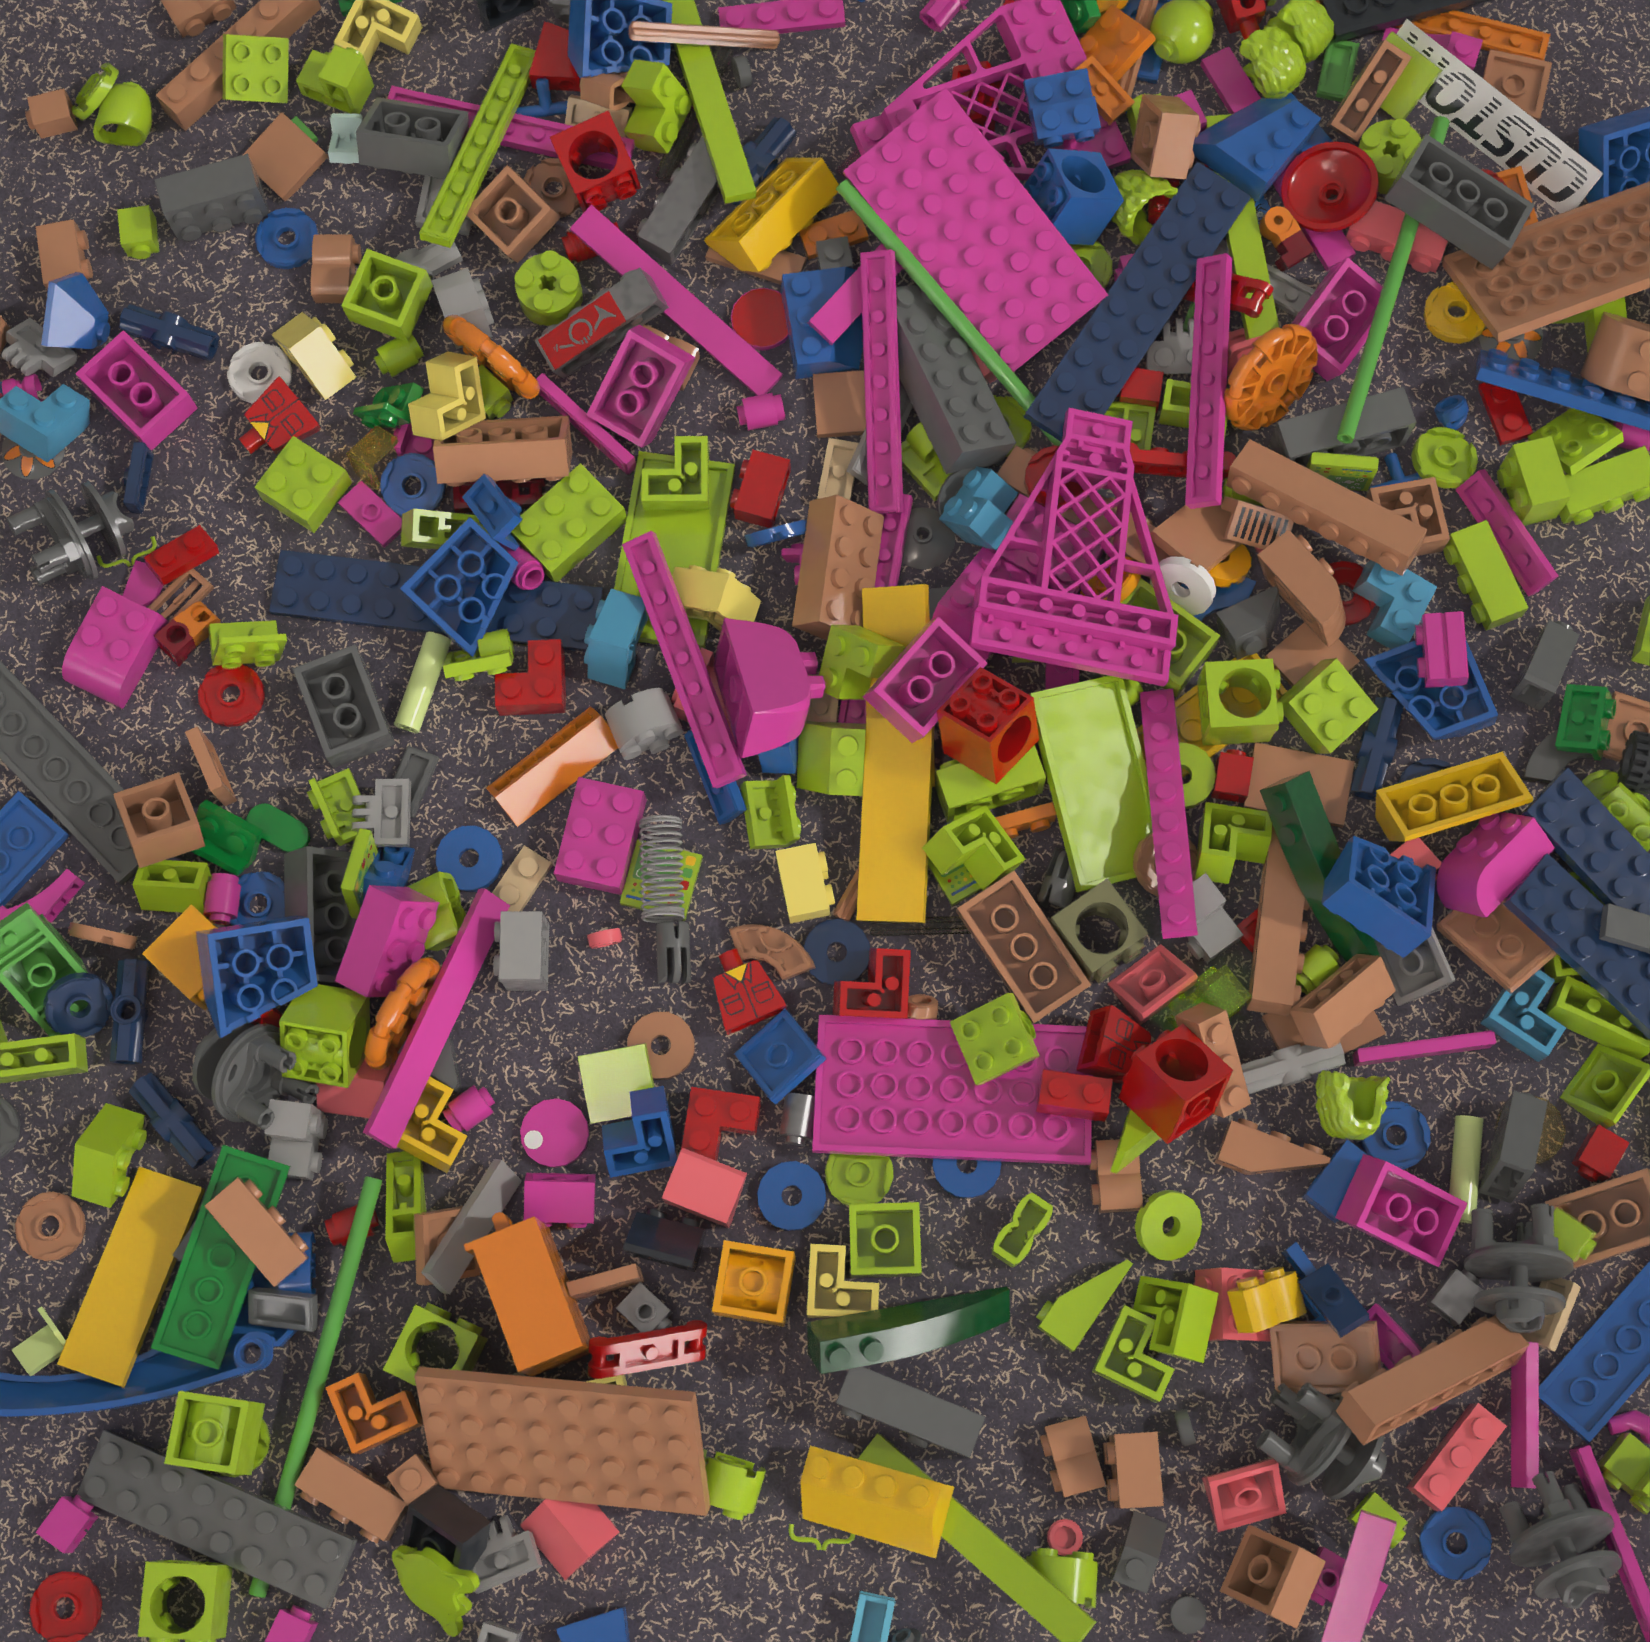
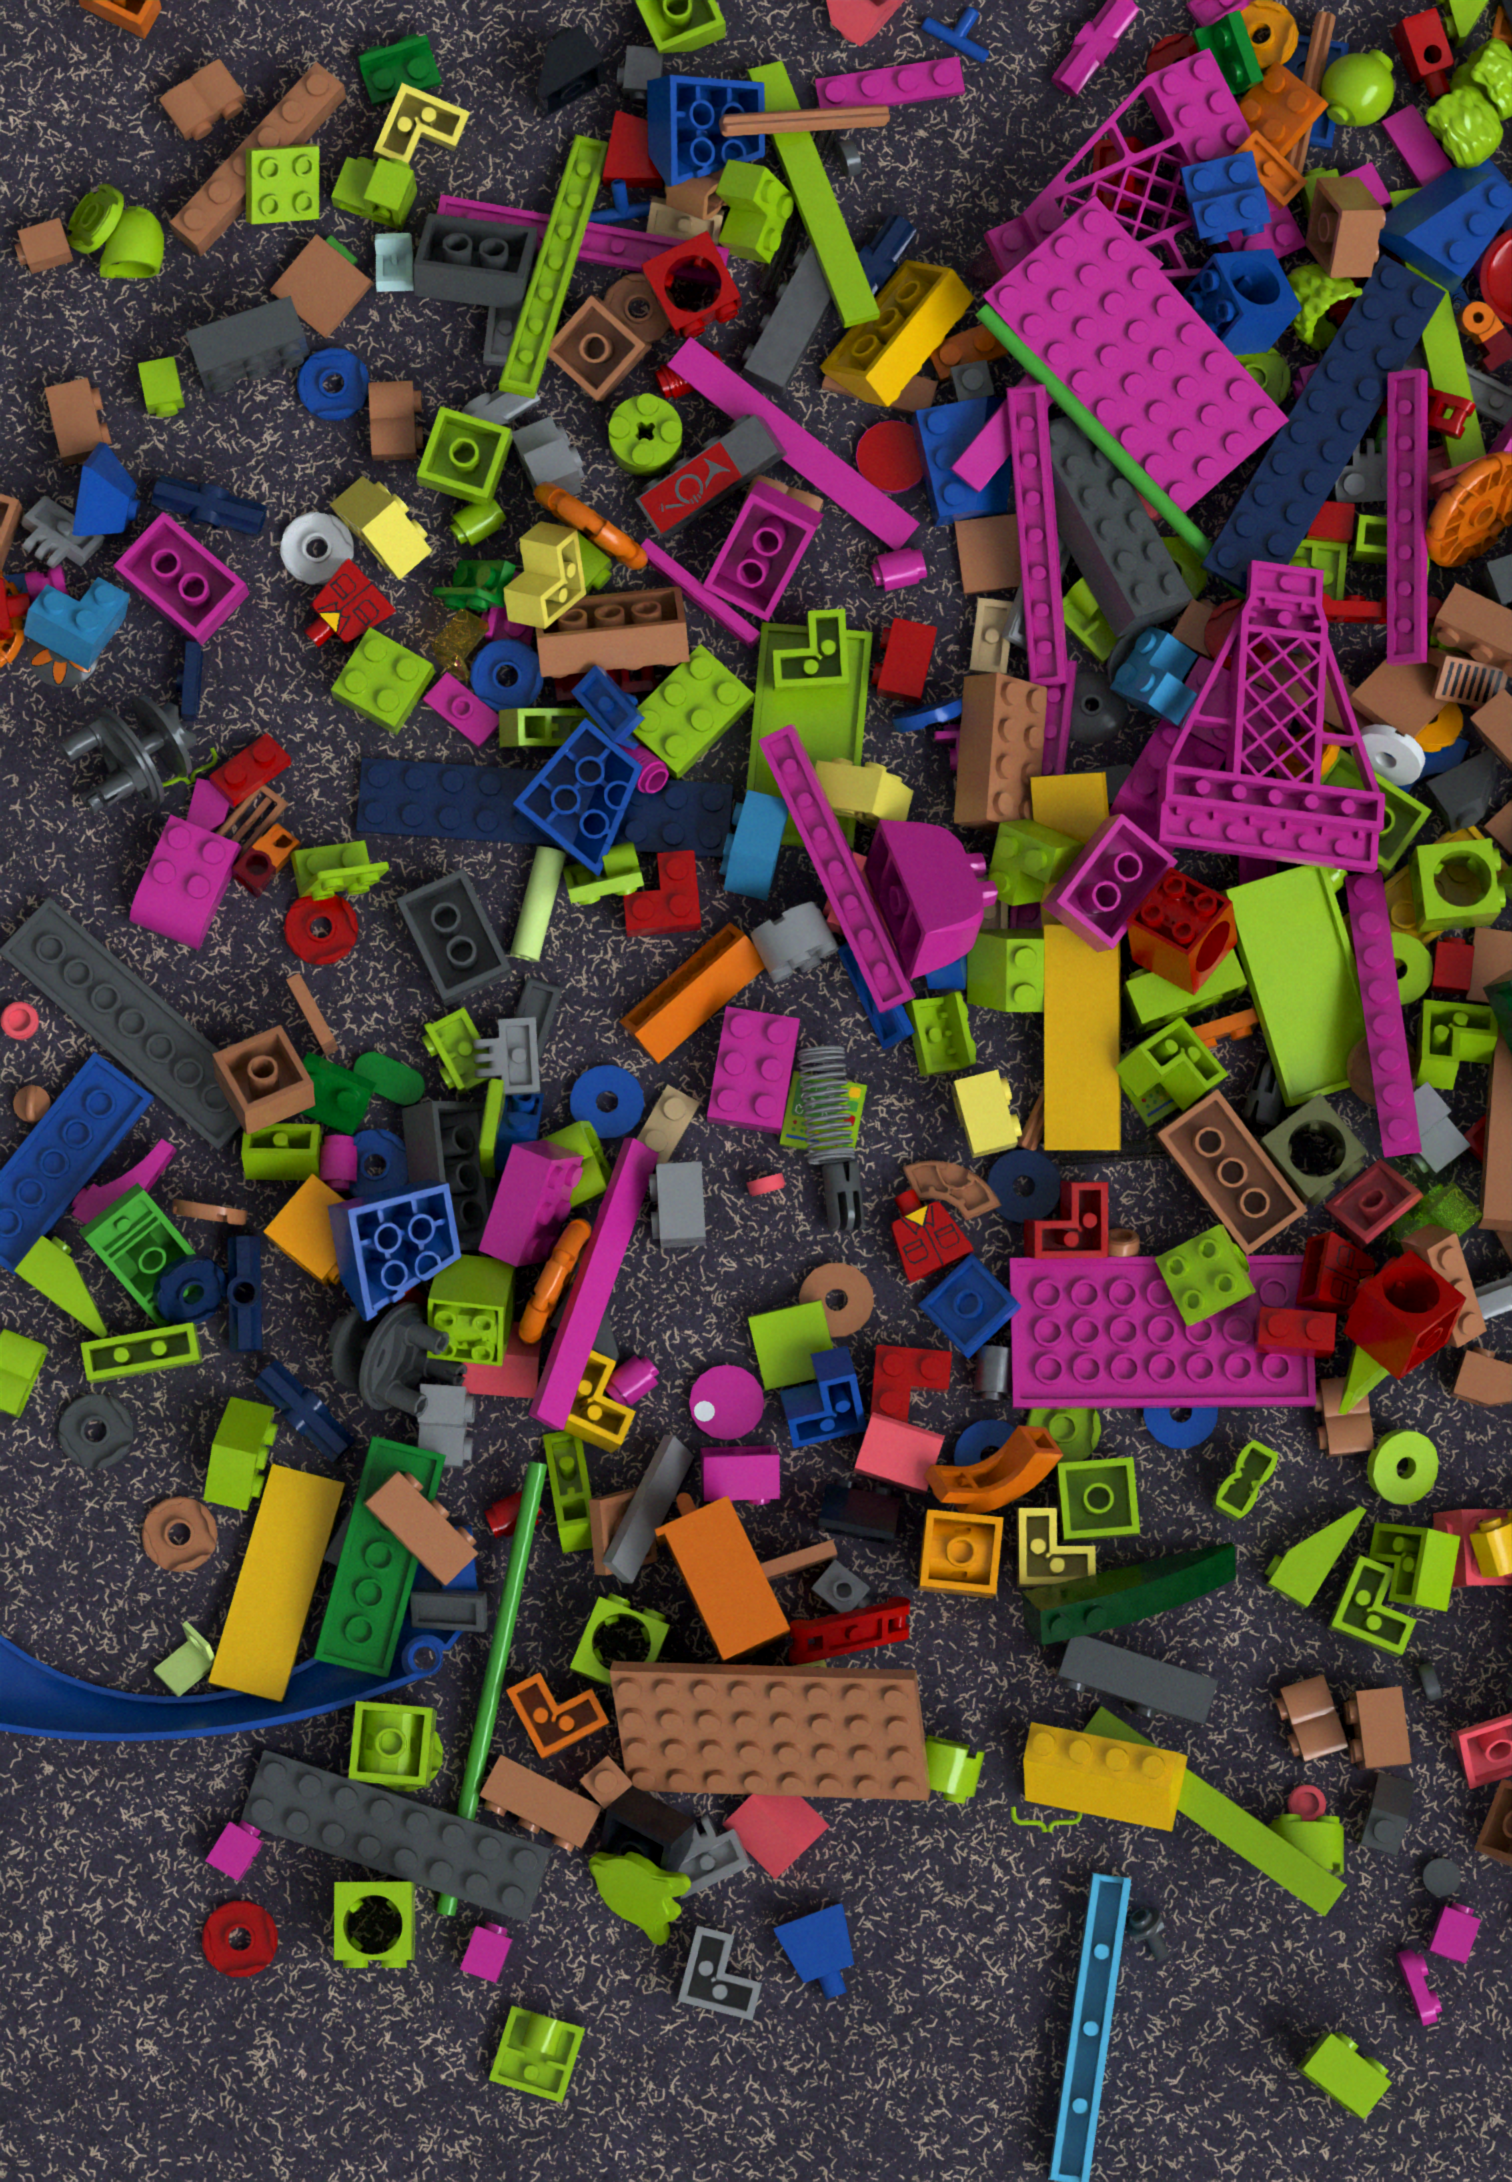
camera: 10 degrees left, 5 degrees up
(795, 1216) = (1000, 1478): none -> orange arch

